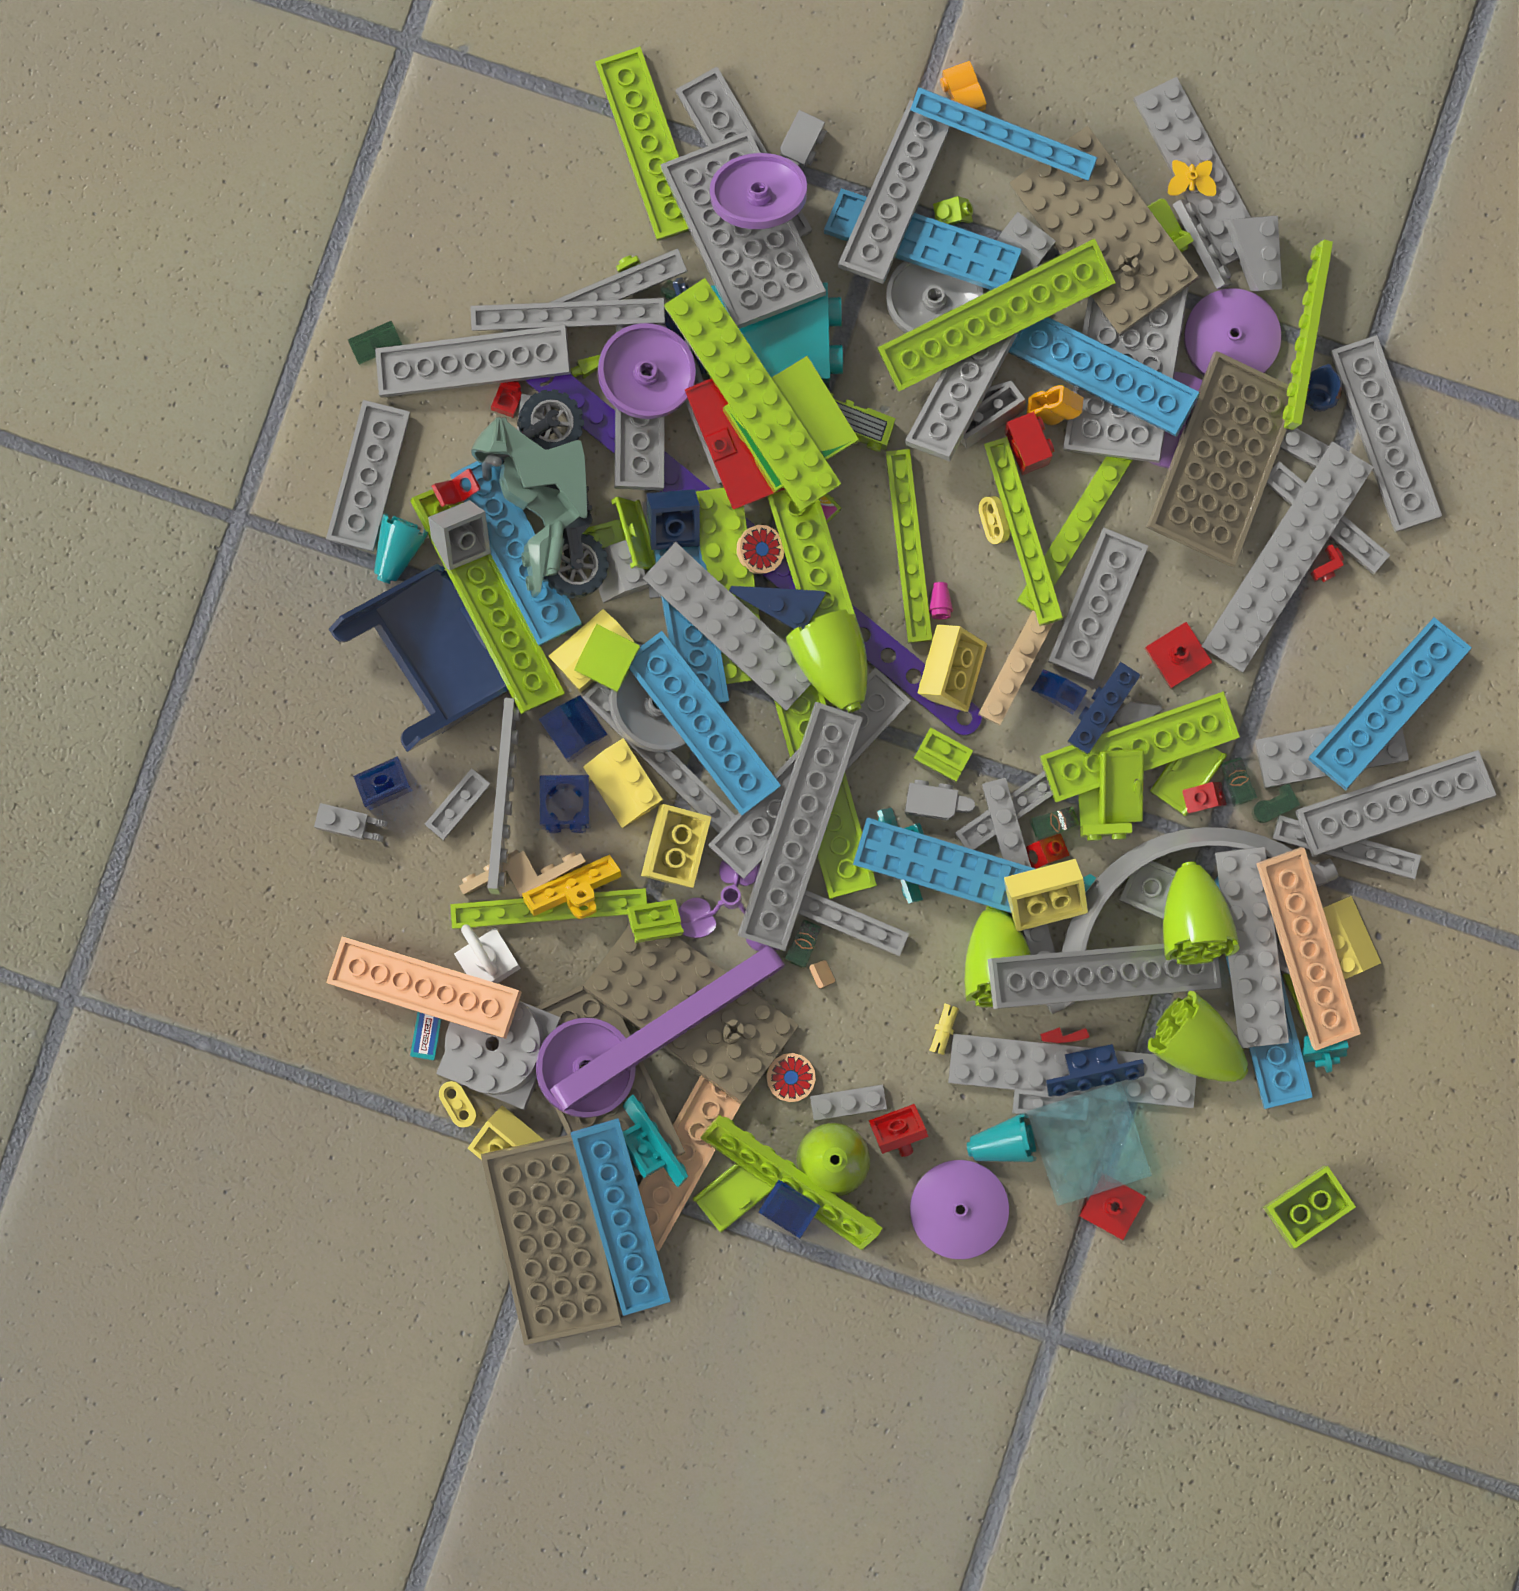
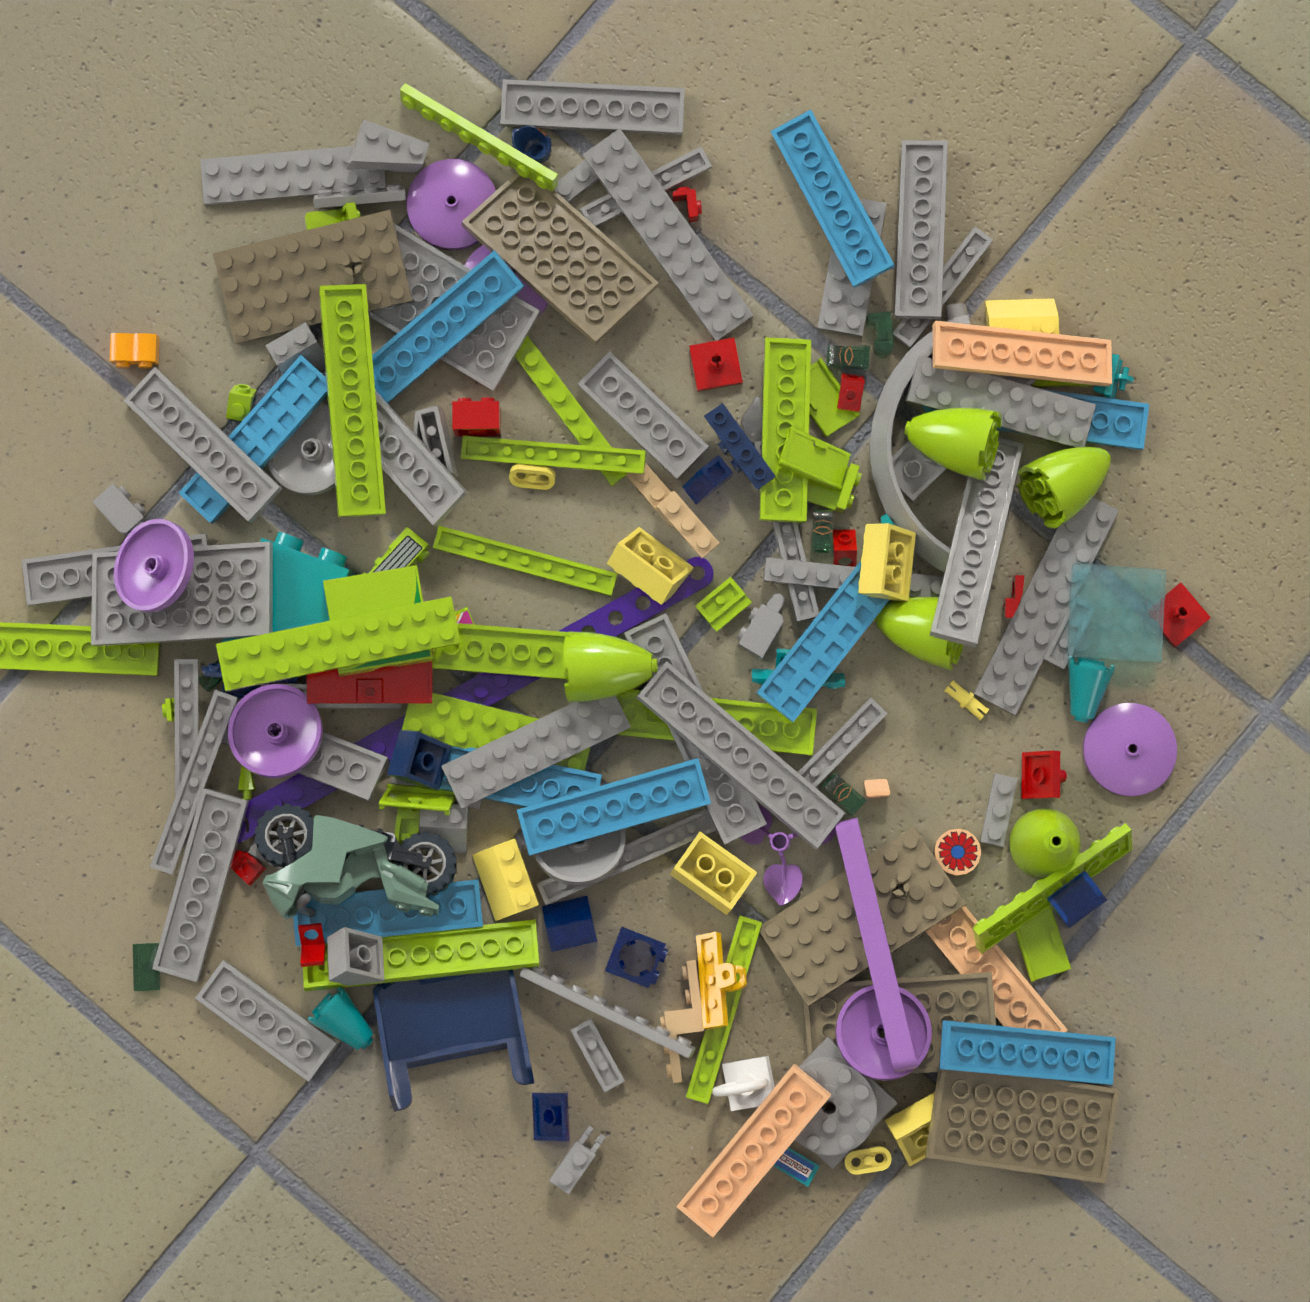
camera: 70 degrees left, 0 degrees up
(607, 658) = (521, 868): lime slope -> none
(623, 783) = (637, 898): light yellow slope -> none
(648, 1147) = (975, 1004): teal bracket -> none
(655, 921) = (773, 918): lime plate -> none
(760, 549) = (477, 693): tile -> none
(787, 605) = (538, 688): dark blue wing -> none
(940, 602) = (586, 552): dark pink cone -> none
(1004, 133) = (190, 329): dark azure plate -> none
(1055, 405) = (452, 381): light orange brick -> none
(1092, 1069) = (1053, 582): dark blue bracket -> none
(1192, 176) = (296, 181): yellow piece -> none
(1309, 1207) = (1244, 444): lime brick -> none

